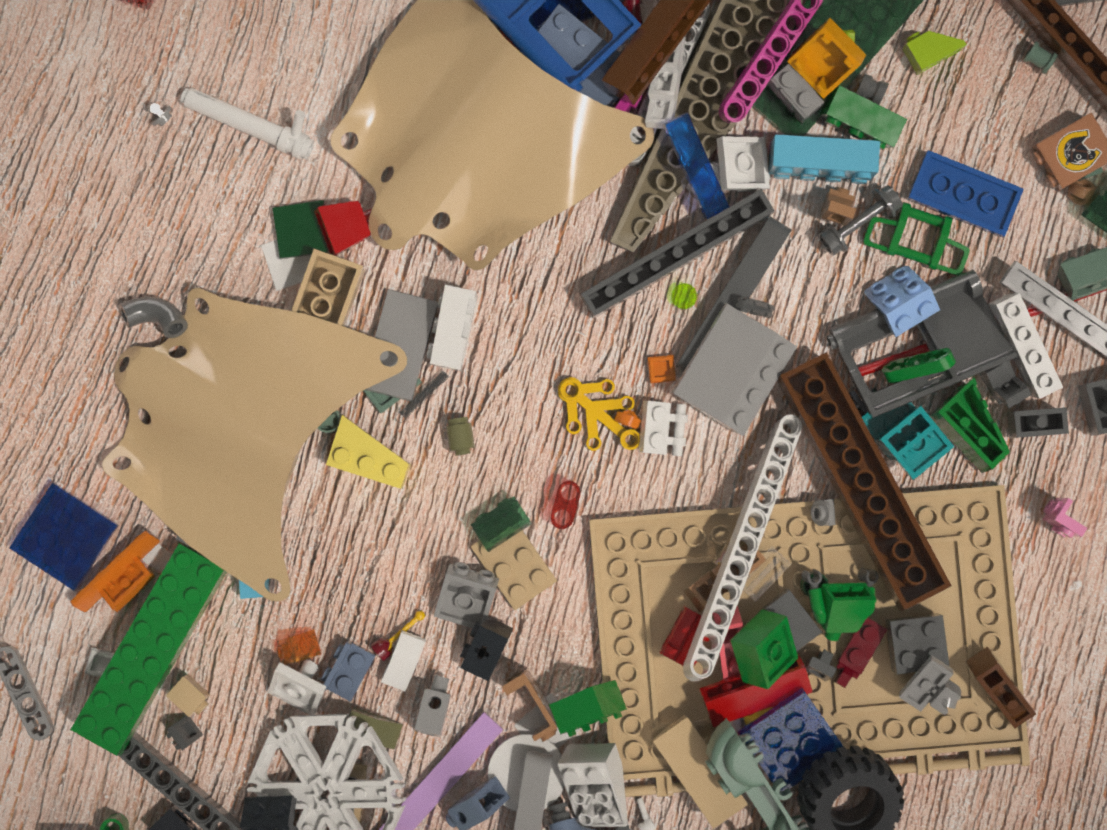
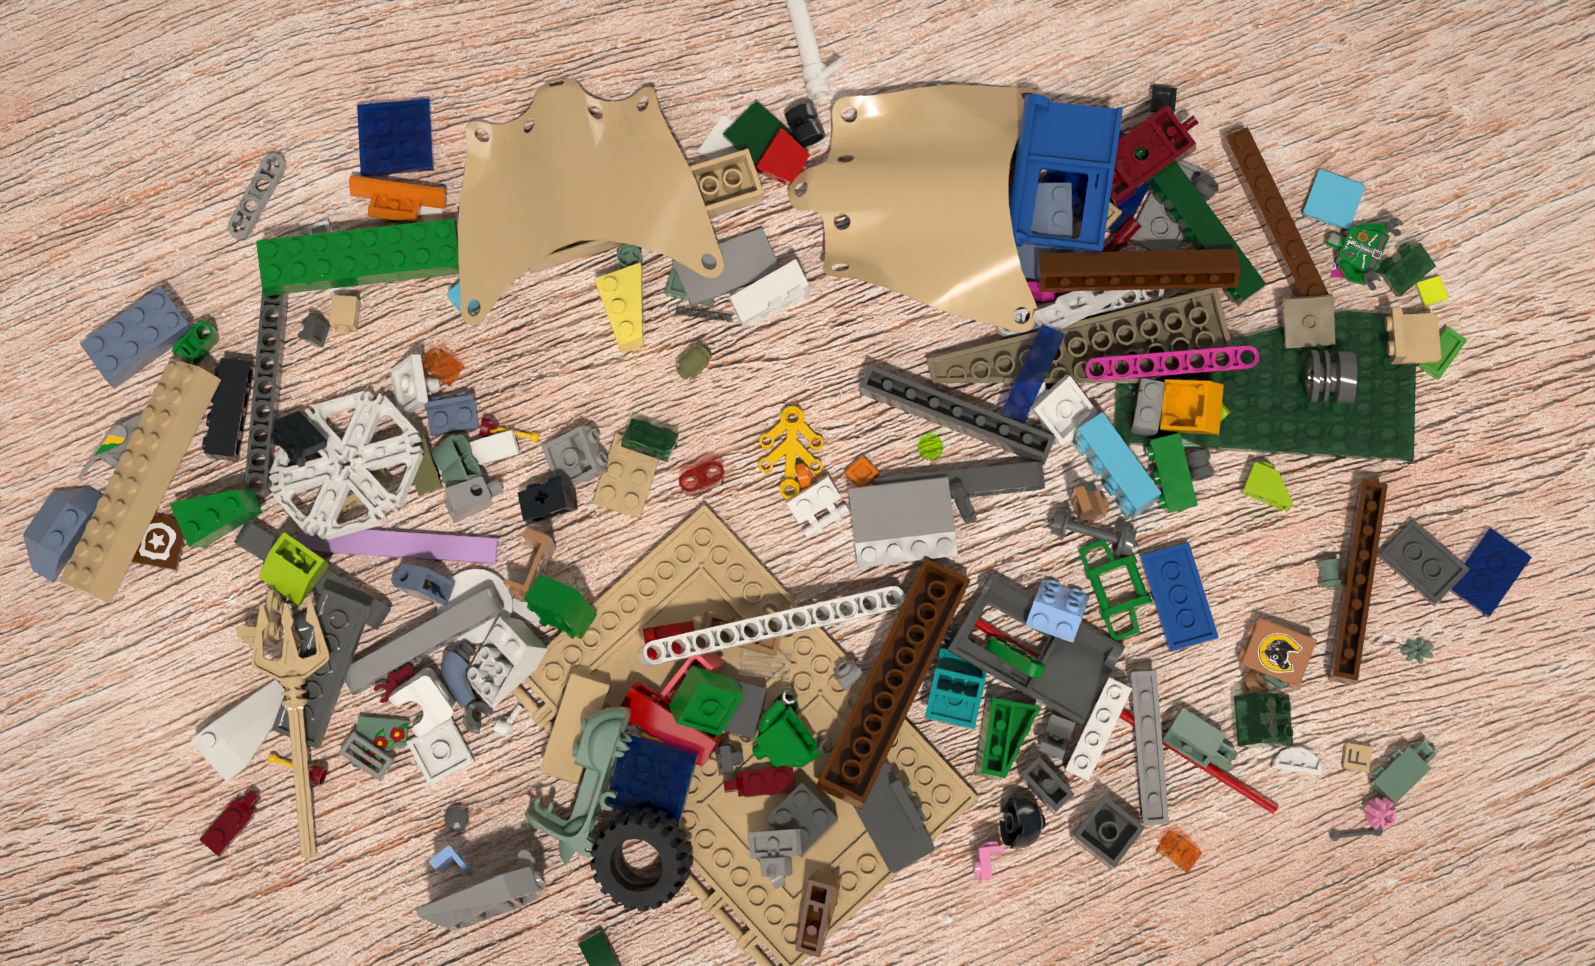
camera: 55 degrees right, 10 degrees down
(156, 311) = (613, 76): dark grey cylinder -> none
(327, 184) = (803, 122): none -> black wheel
(394, 699) = (455, 460): none -> sand green brick
(978, 569) = (895, 822): none -> dark grey bracket
(1051, 467) = (1021, 822): none -> black cylinder

